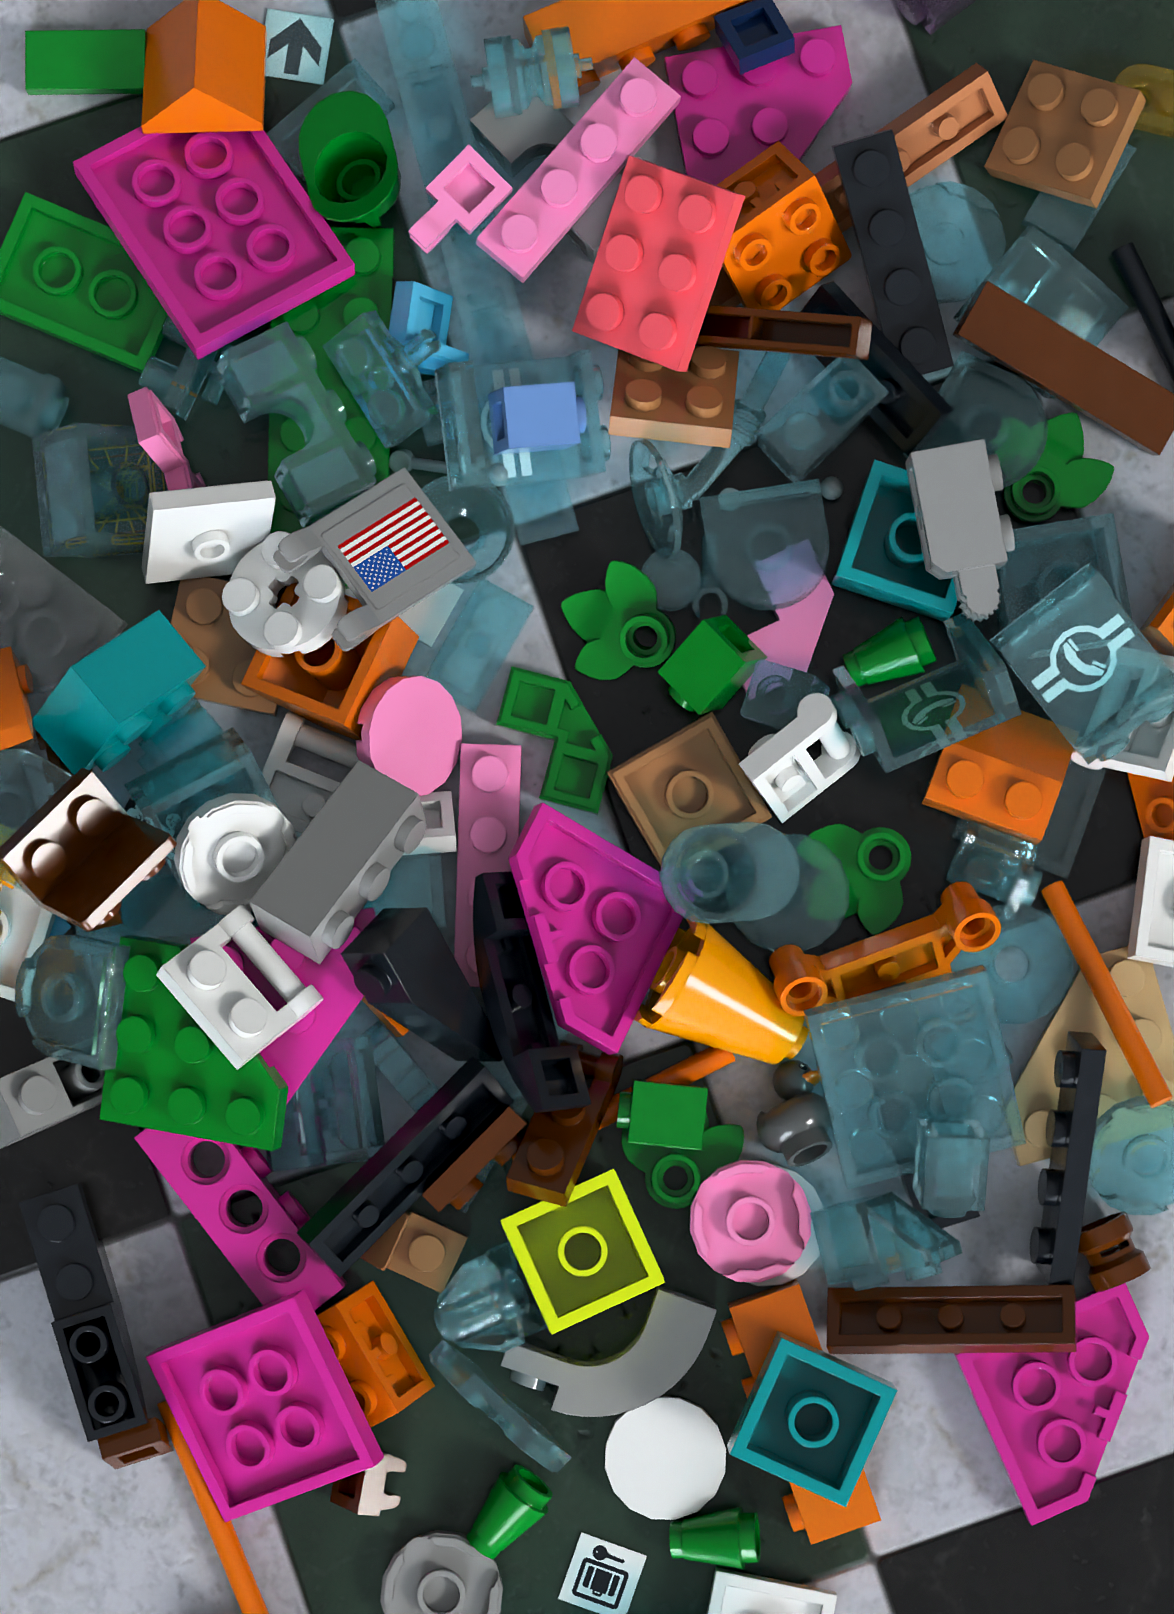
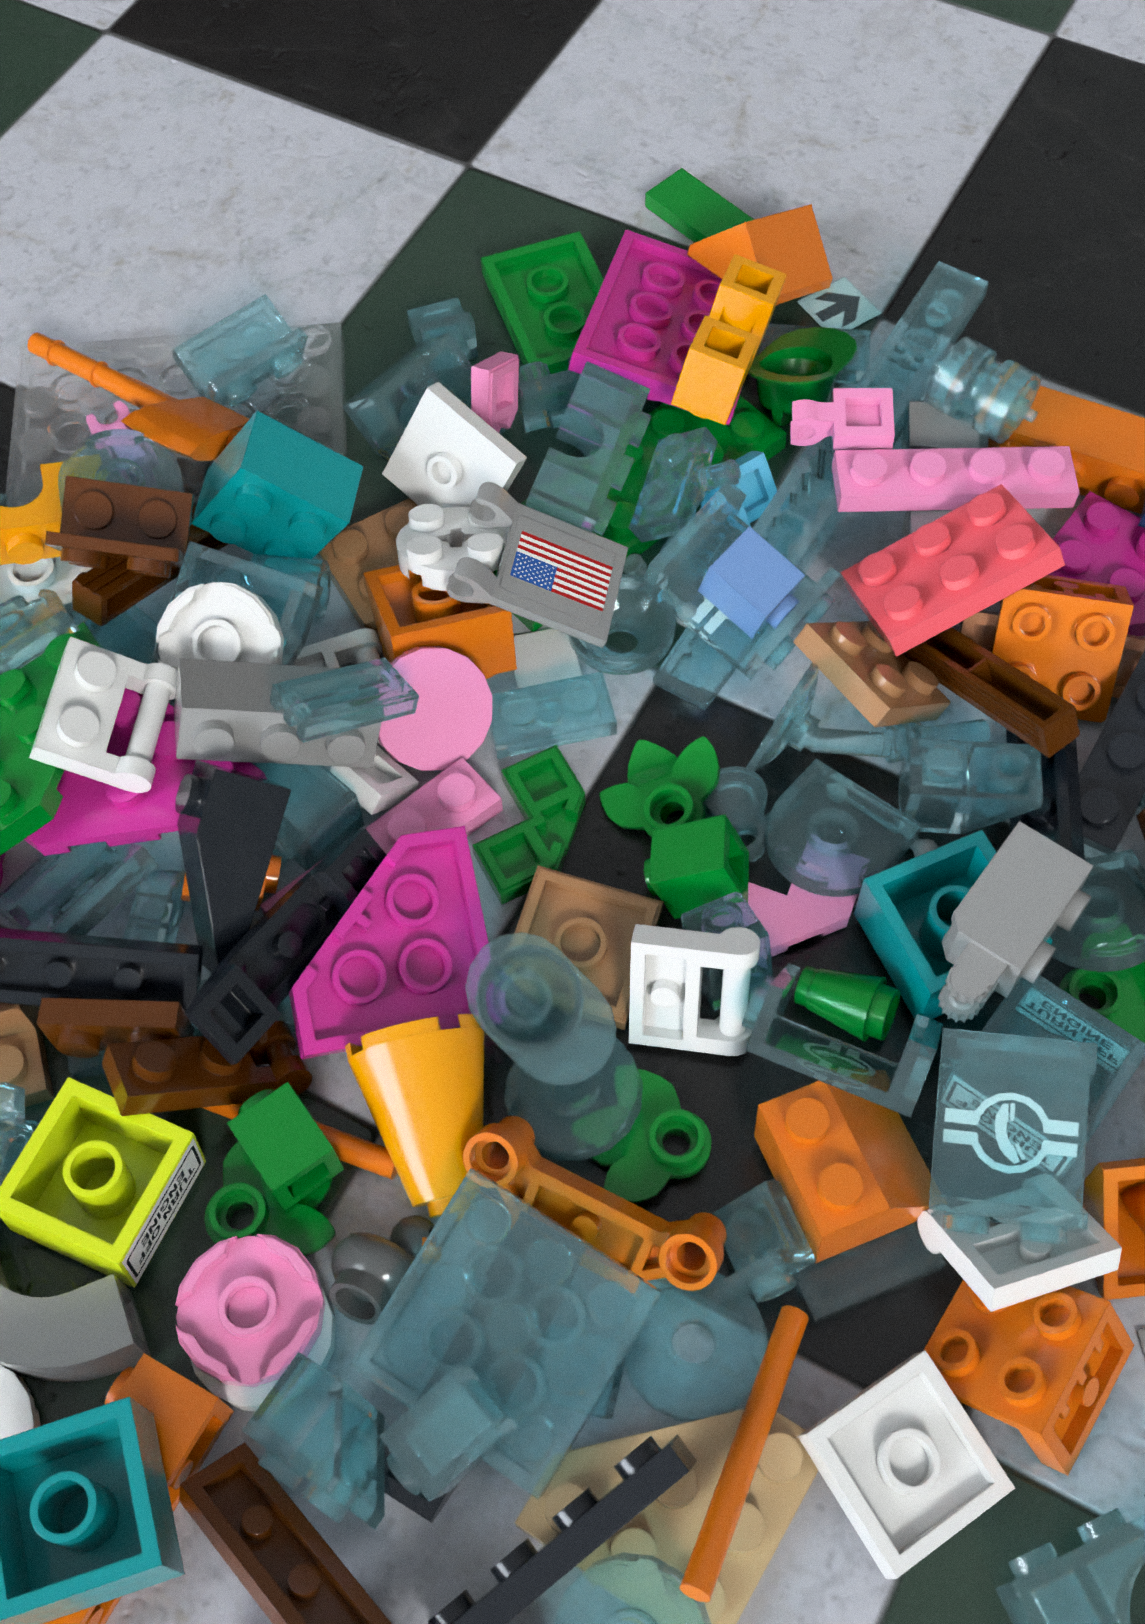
camera: 50 degrees right, 25 degrees down
(317, 247) = (728, 340): none -> light orange arch
(379, 854) = (344, 699): none -> clear light blue tile

